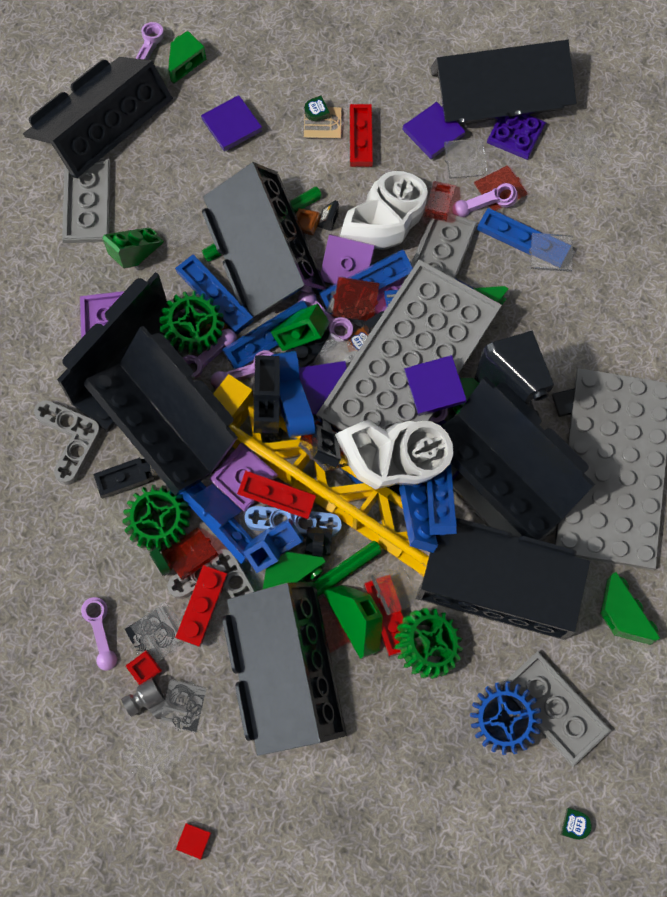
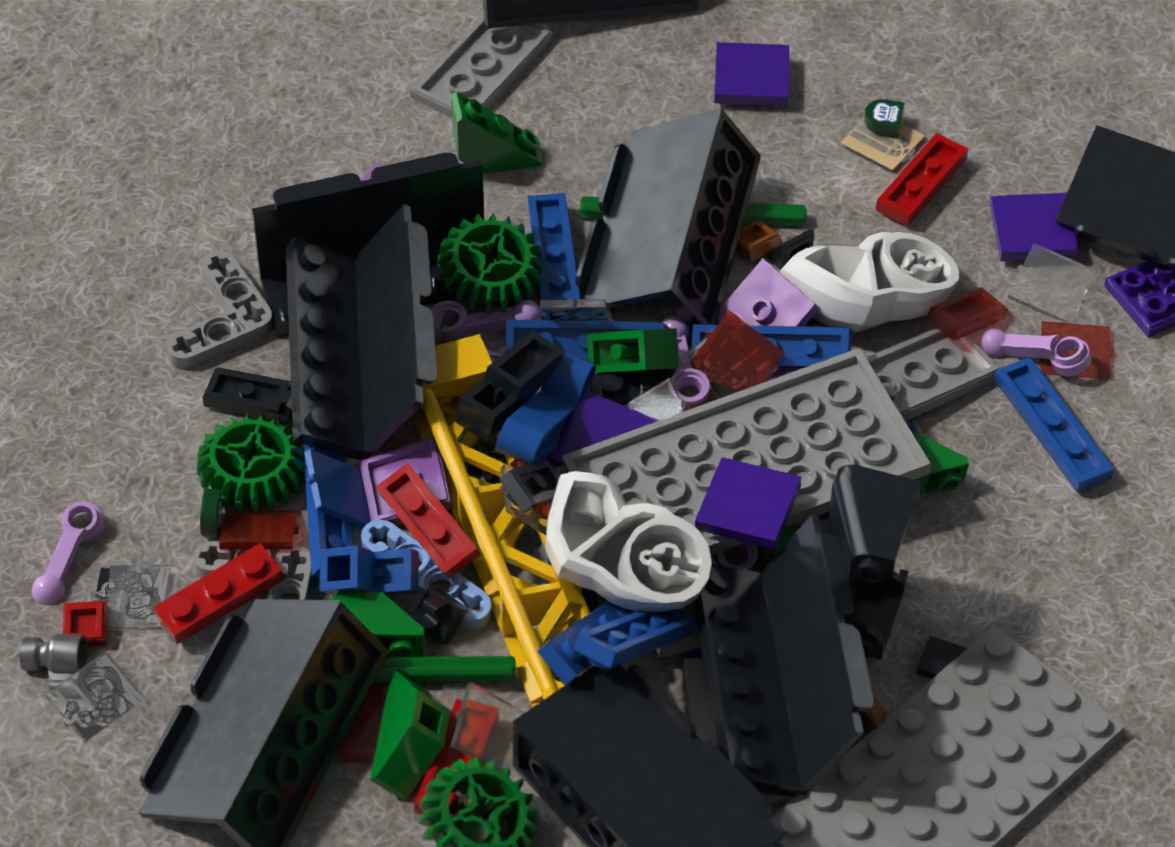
camera: 35 degrees right, 20 degrees down
(551, 252) = (1076, 459): clear piece -> none

